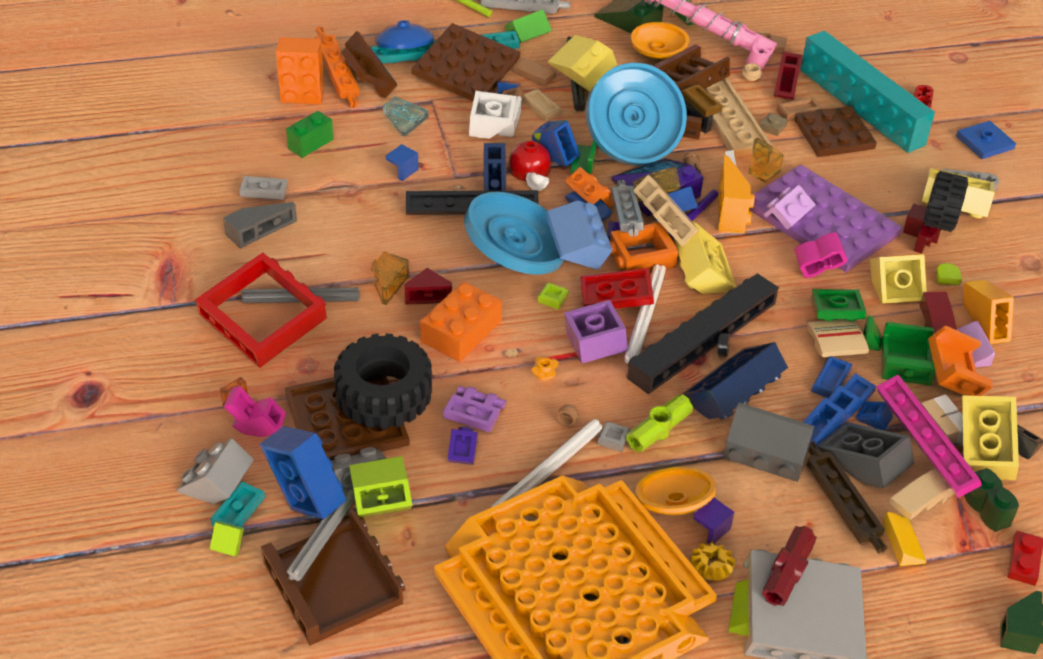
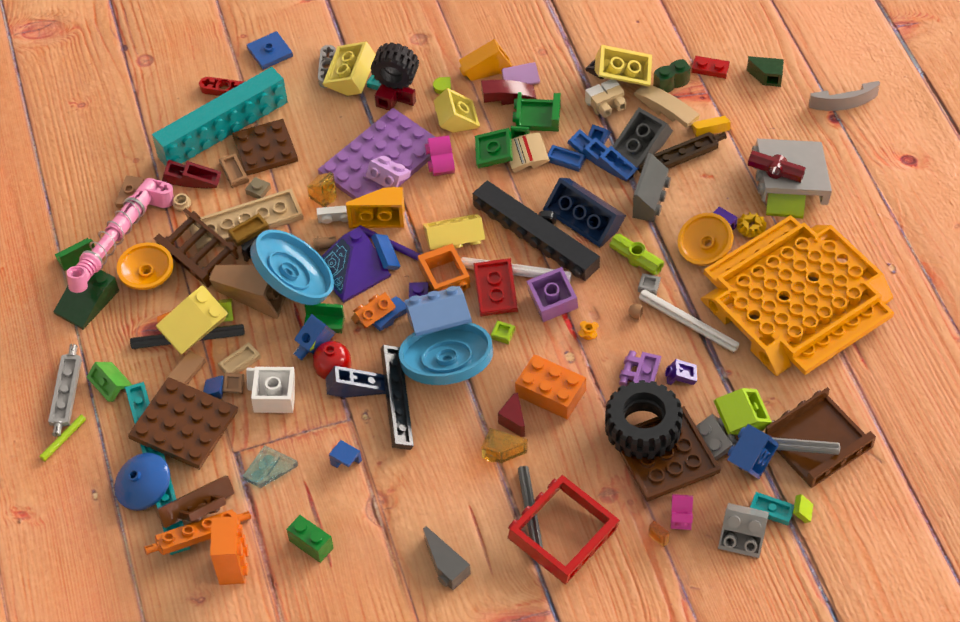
camera: 90 degrees left, 10 degrees up
(263, 188) = (391, 565): light grey plate -> none
(537, 181) = (358, 351): white piece -> none
(627, 208) = (405, 277): light grey plate -> none
(666, 178) = (372, 258): clear yellow slope -> none
(666, 210) = (409, 249): tan slope -> none
(929, 436) = (629, 100): dark pink plate -> none
(955, 362) = (552, 84): orange panel -> none

